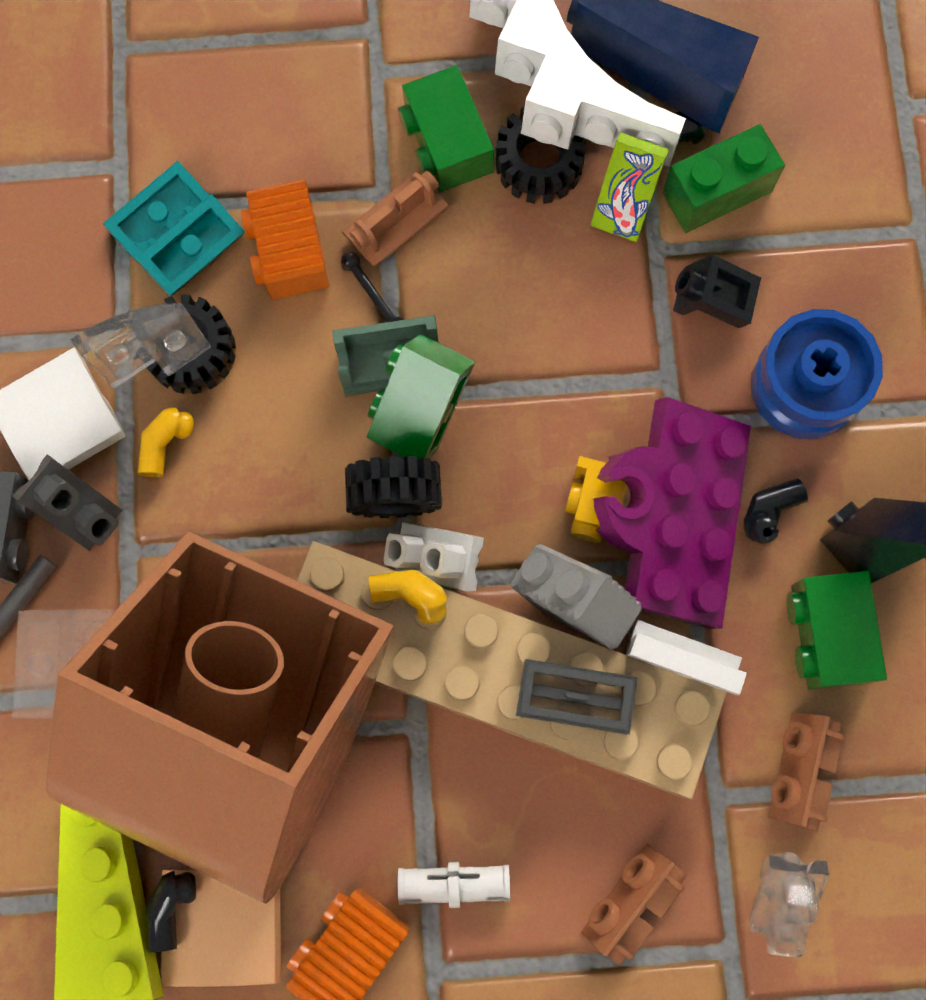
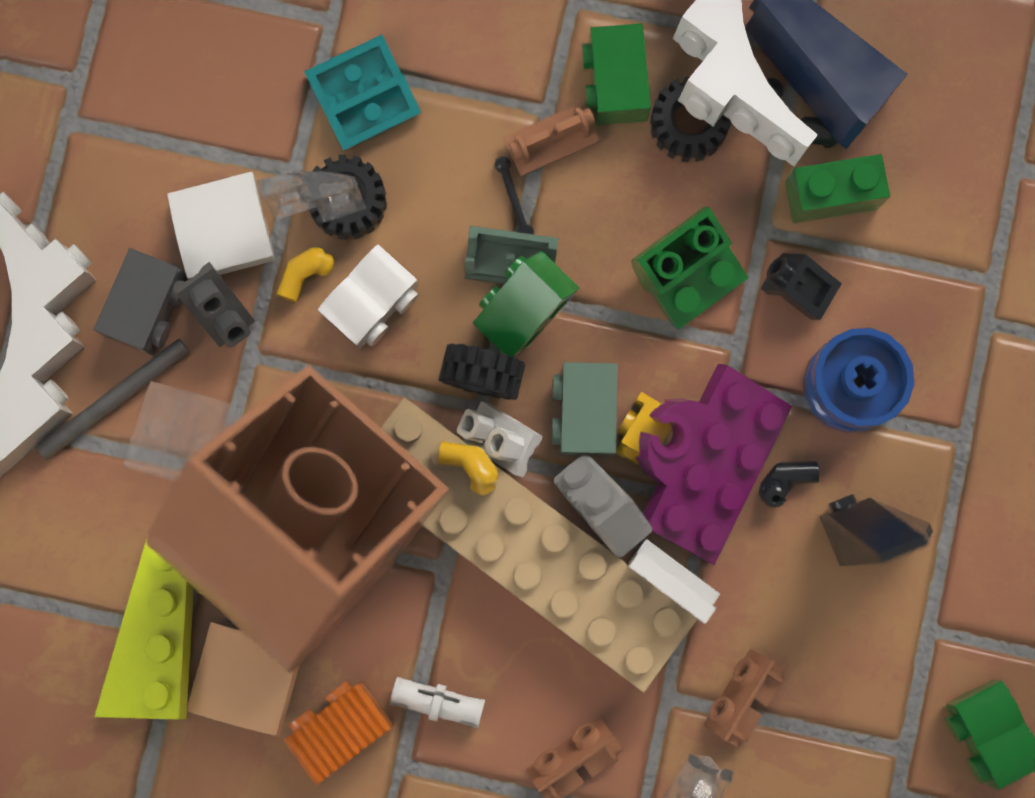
camera: 10 degrees right, 5 degrees up
(161, 909) = (204, 650): black arm -> none
(243, 444) = (370, 297): none -> white brick
(286, 240) = (454, 131): orange brick -> none
(524, 496) = (587, 409): none -> sand green brick
(589, 308) = (689, 267): none -> green brick
(624, 705) = (613, 603): dark grey tile -> none
(628, 186) = (754, 174): tile -> none
(836, 631) = (805, 595): green brick -> none

